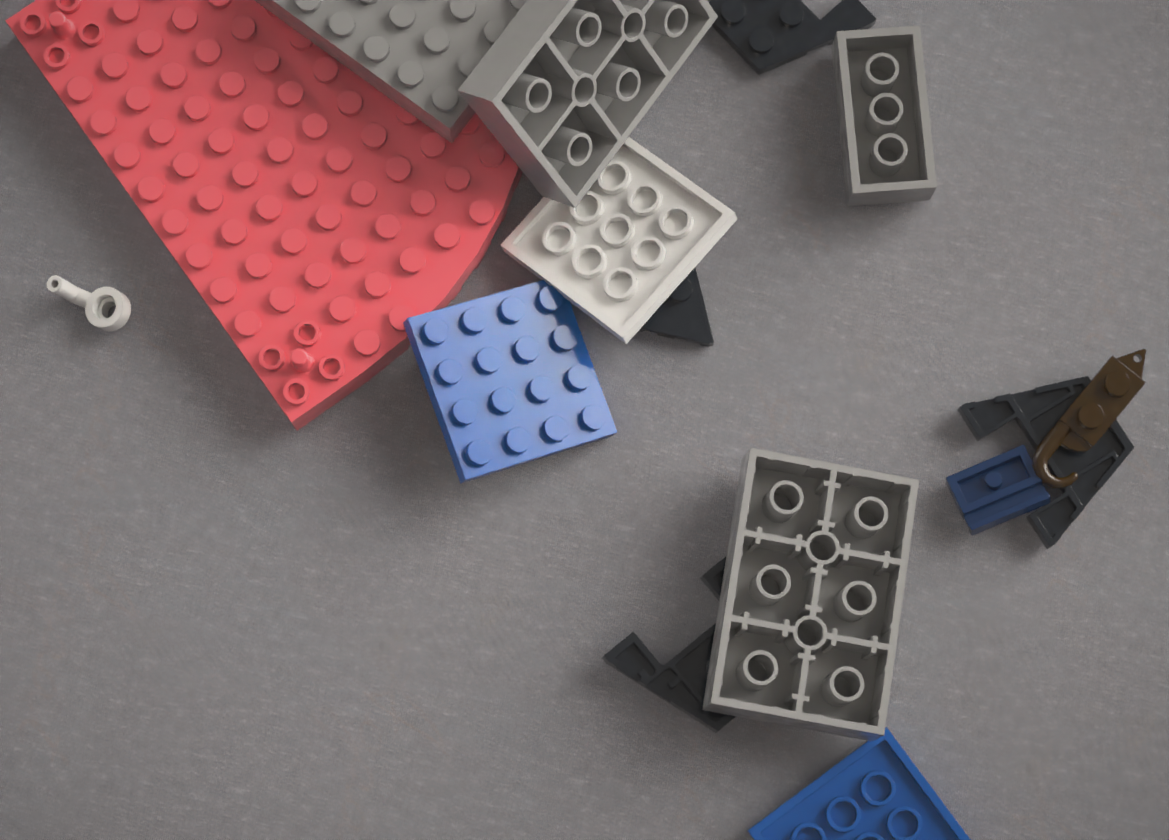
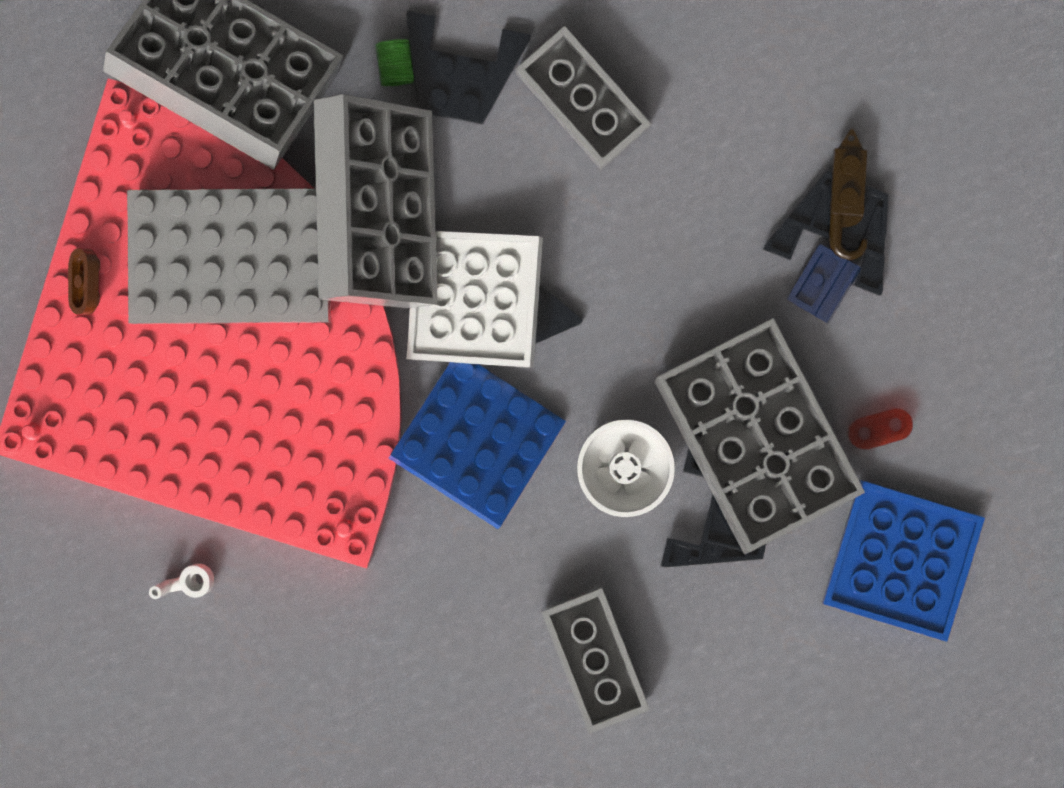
camera: 35 degrees left, 10 degrees up
(457, 702) = (595, 659): none -> light grey brick
(644, 491) = (633, 492): none -> white piece
(946, 688) = (879, 428): none -> clear red plate

